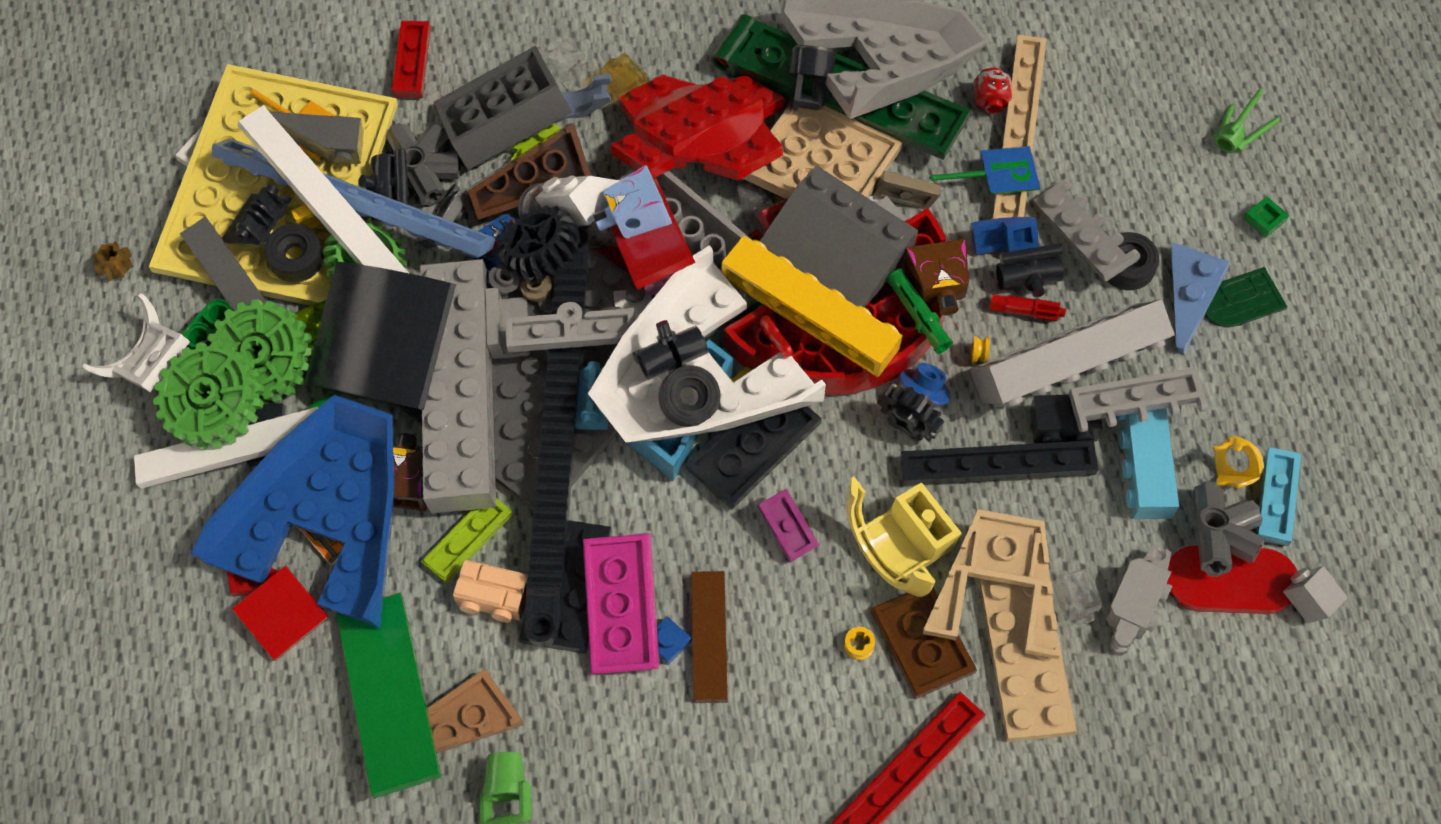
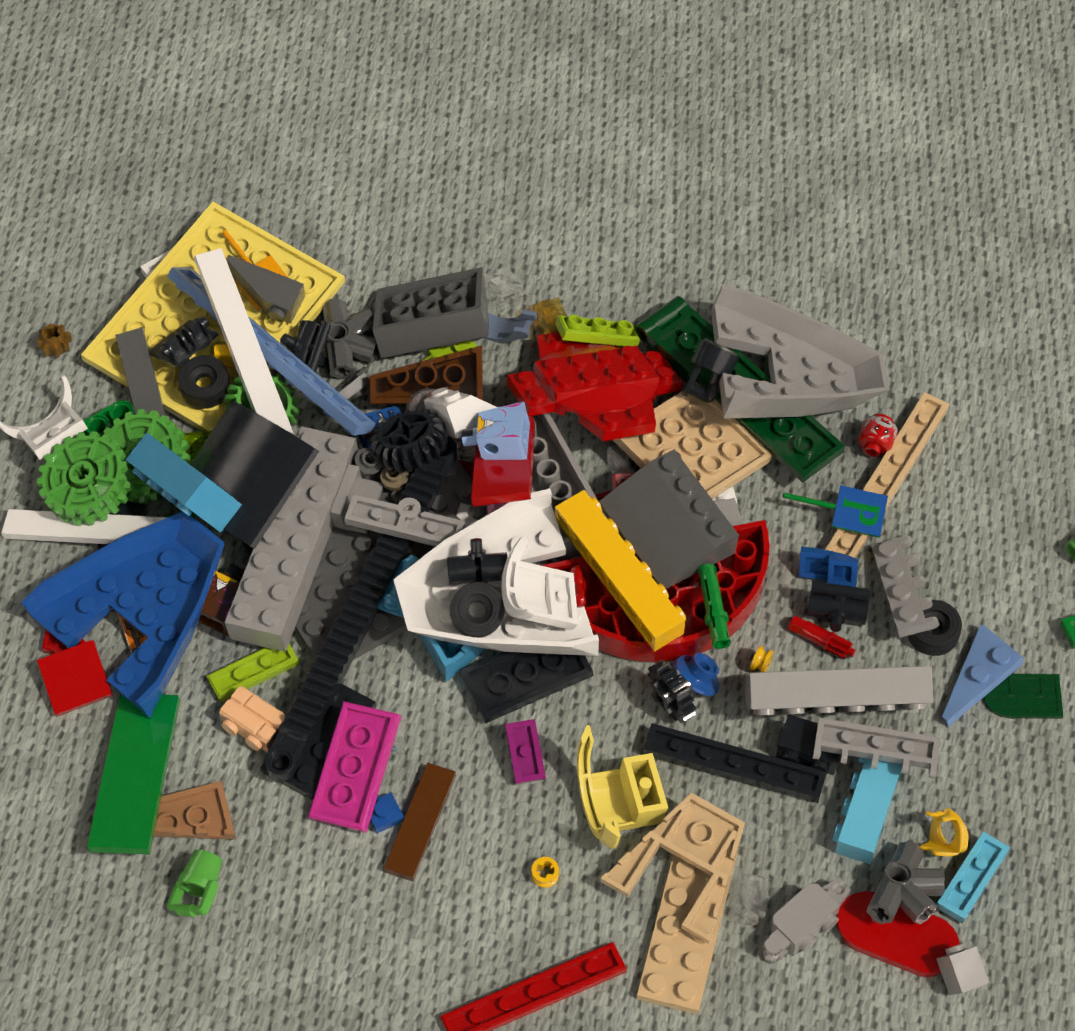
camera: 20 degrees right, 5 degrees down
(318, 365) = (182, 483): none -> dark azure wedge
(411, 59) = (373, 245): red plate -> none
(676, 73) = (597, 331): none -> lime tile
(744, 355) = (538, 591): none -> white piece
(906, 190) = (757, 499): dark tan plate -> none
(923, 659) = (595, 905): reddish brown tile -> none
(939, 273) = (746, 579): reddish brown torso -> none

